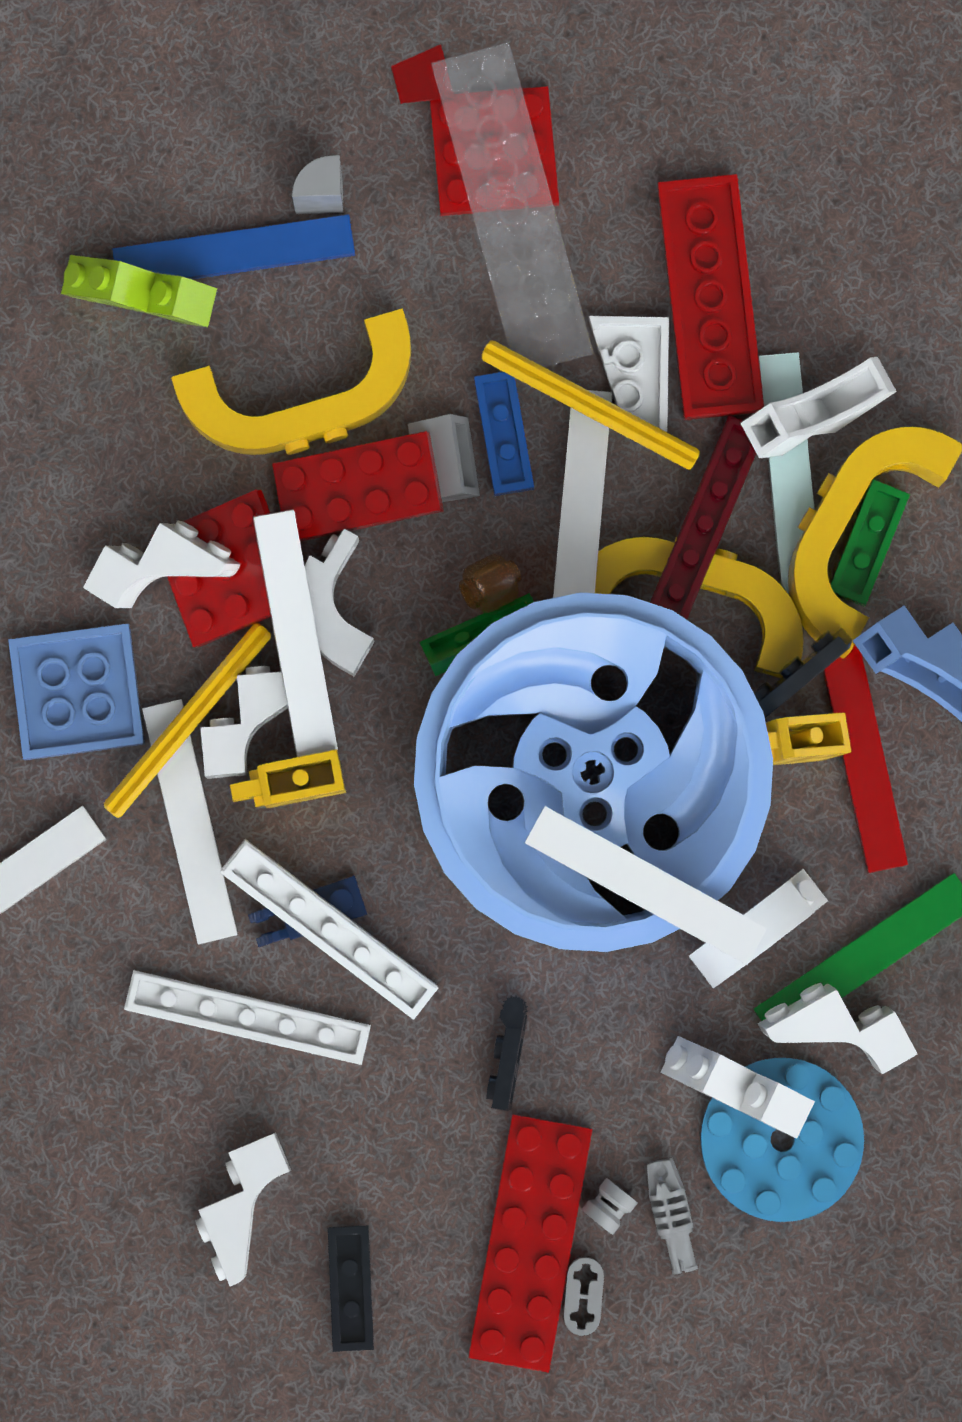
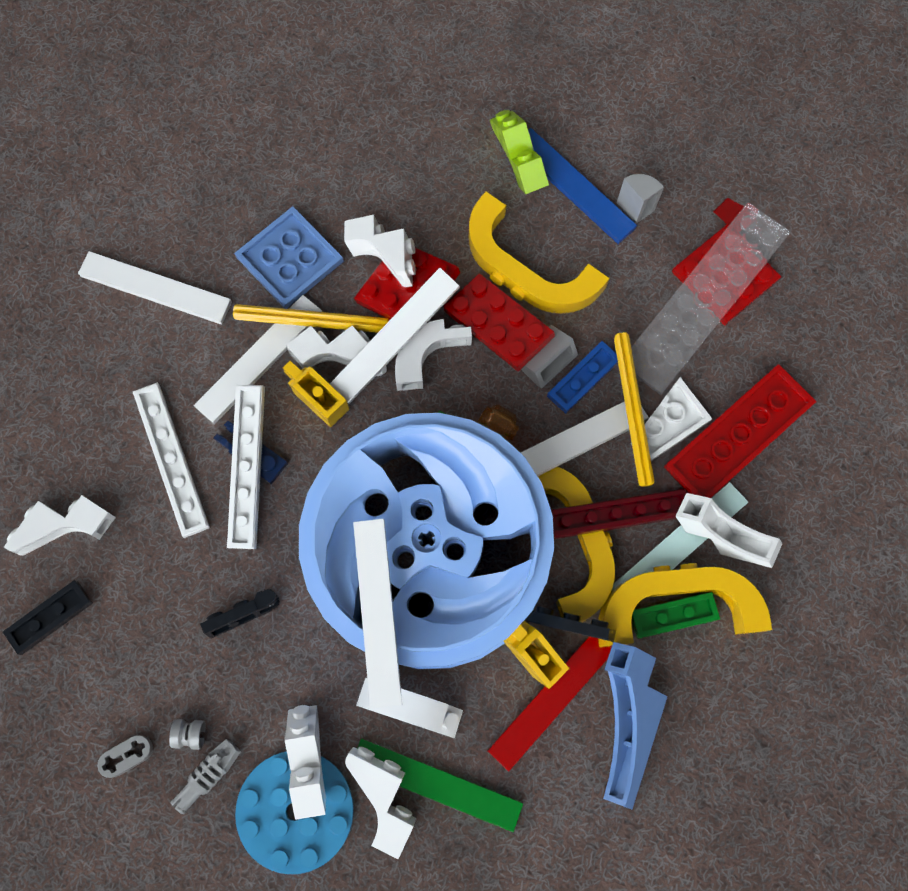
camera: 55 degrees right, 10 degrees down
(530, 1243) = (137, 703): red plate -> none

